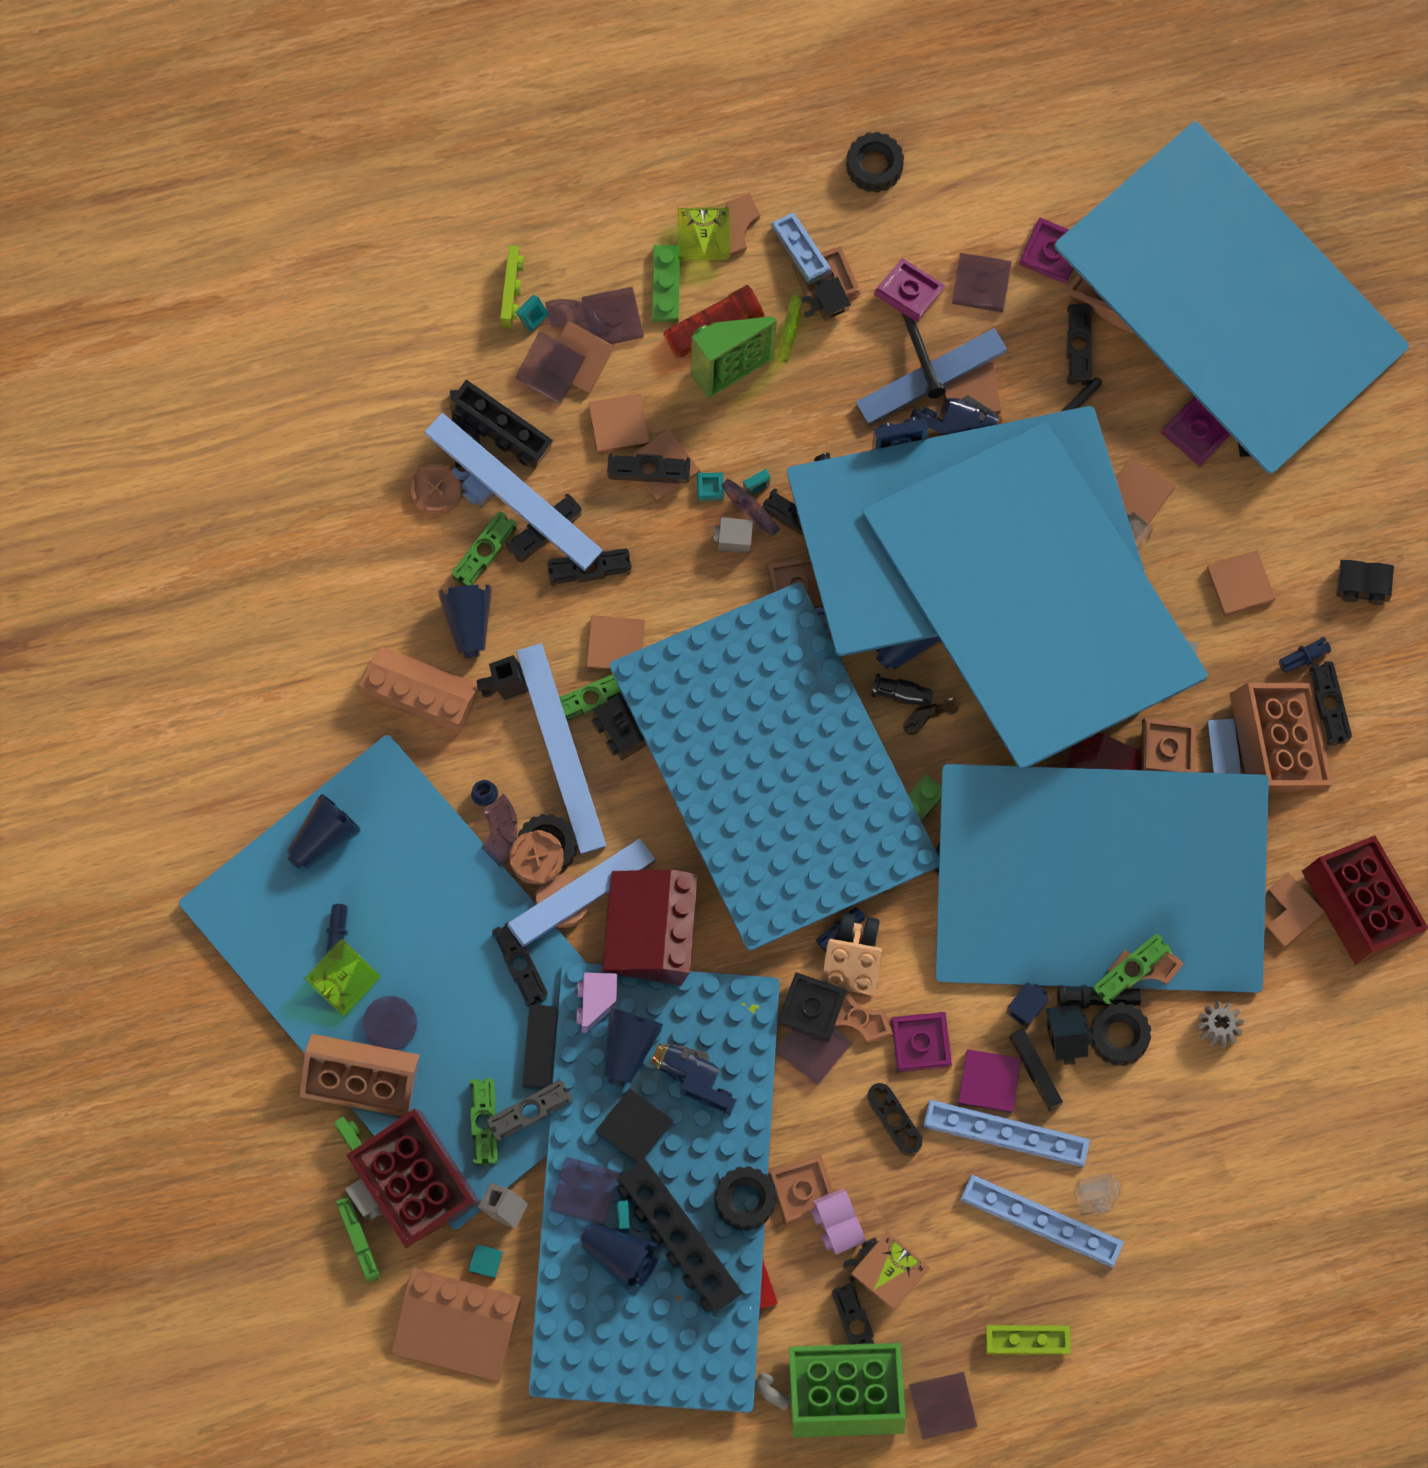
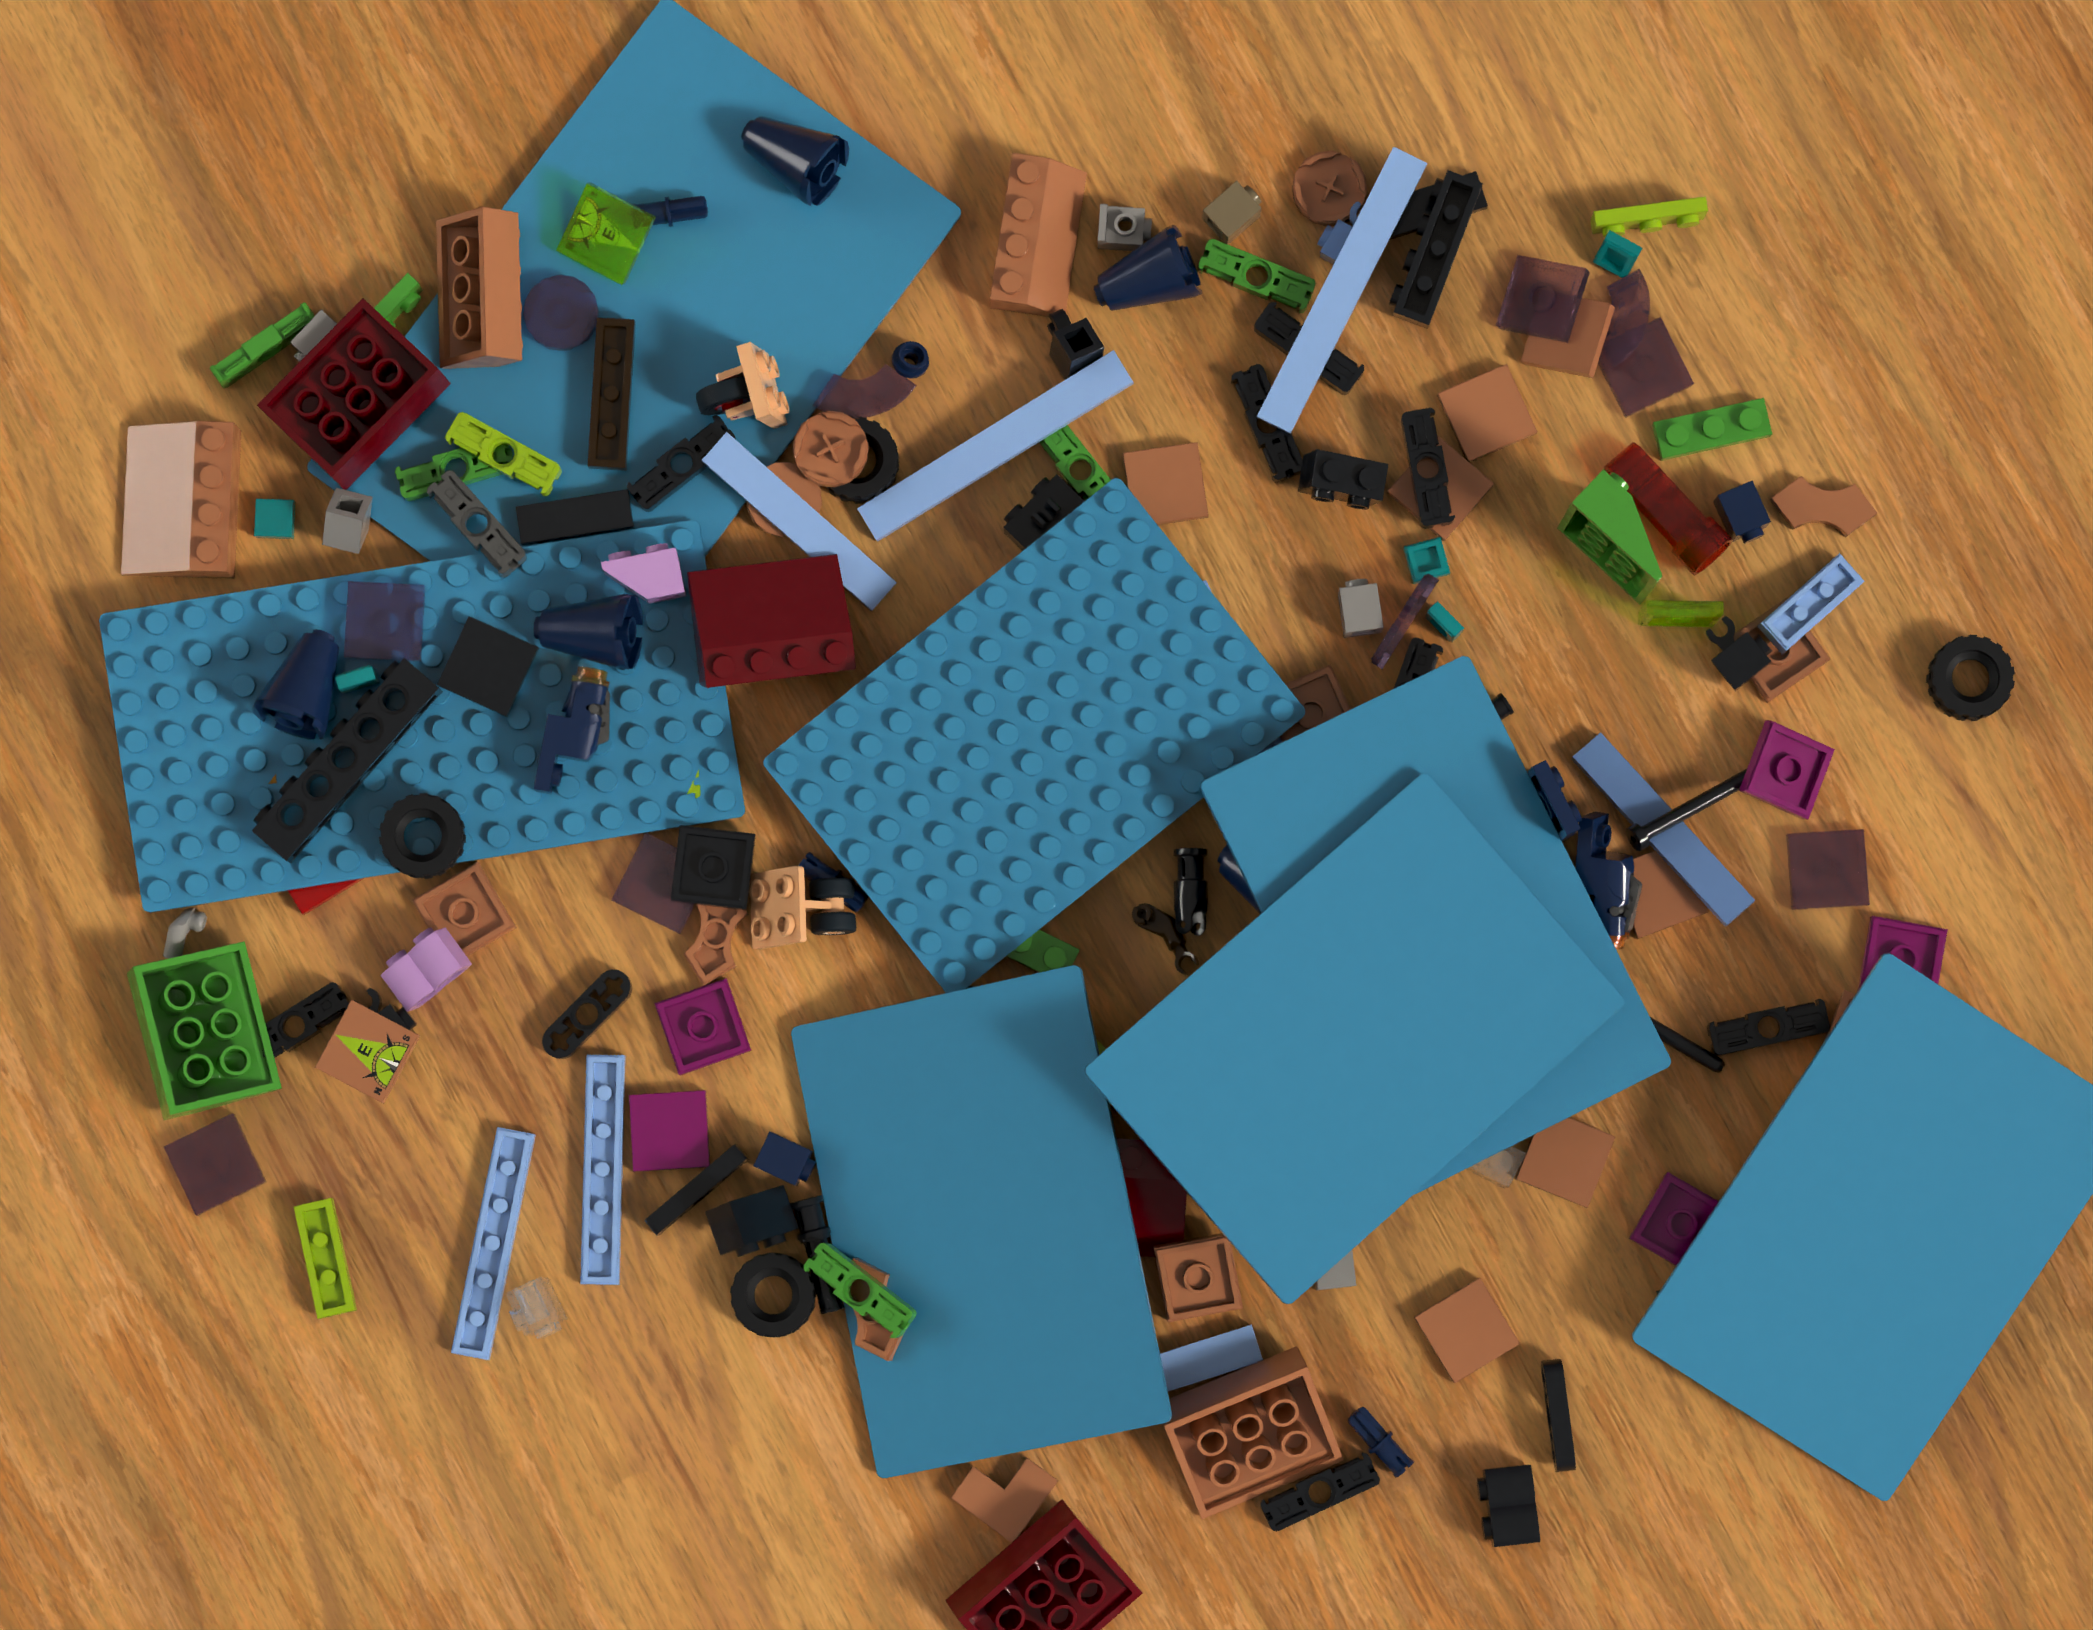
camera: 85 degrees right, 10 degrees up
(428, 638) = (1113, 238): none -> light grey brick
(437, 554) = (1233, 212): none -> dark tan brick
(458, 1000) = (611, 394): none -> dark brown plate
(482, 914) = (747, 390): none -> light nougat plate
(495, 1067) = (483, 440): none -> lime piece
(642, 523) = (1342, 478): none -> black brick
(703, 233) = (1796, 462): clear neon green tile -> none
(728, 275) = (1742, 512): none -> dark blue brick
(1218, 1015) = (830, 1429): light grey gear -> none
(1310, 537) = (1558, 1415): none -> black beam

